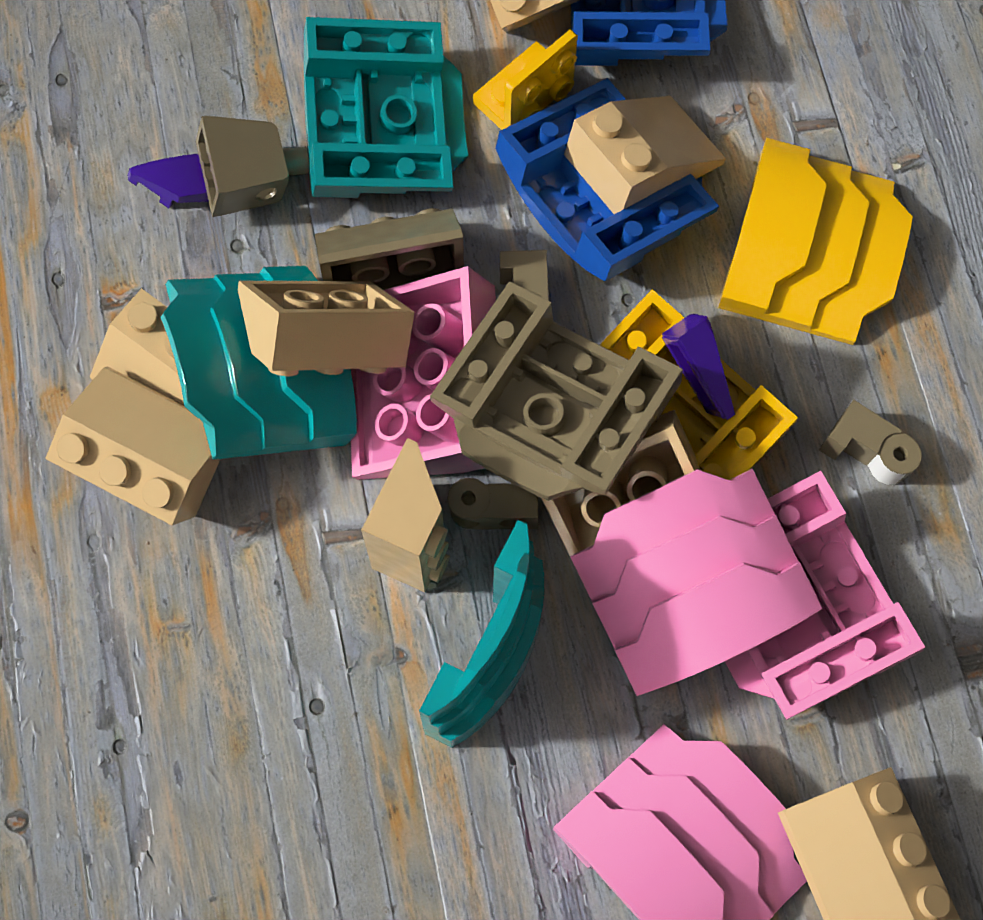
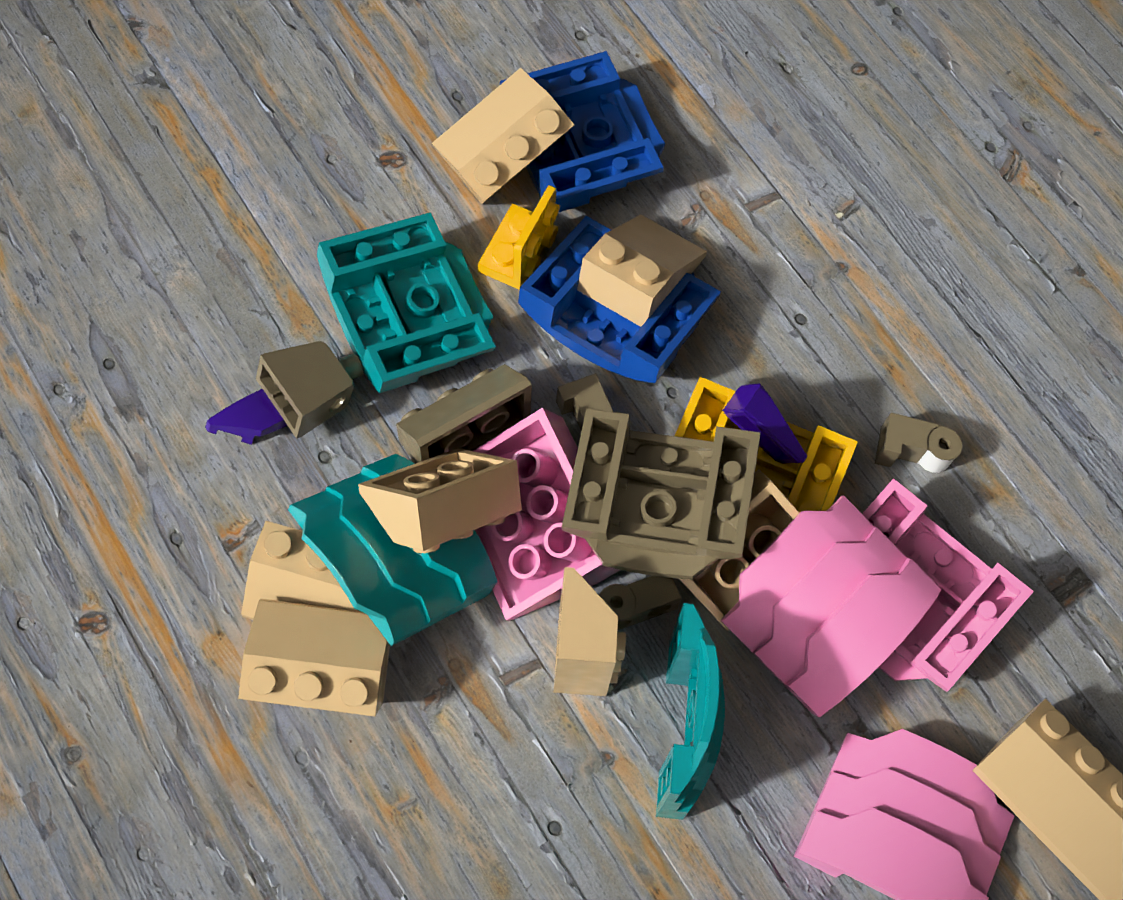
camera: 25 degrees left, 5 degrees down
(816, 245) = (806, 297): yellow slope -> none

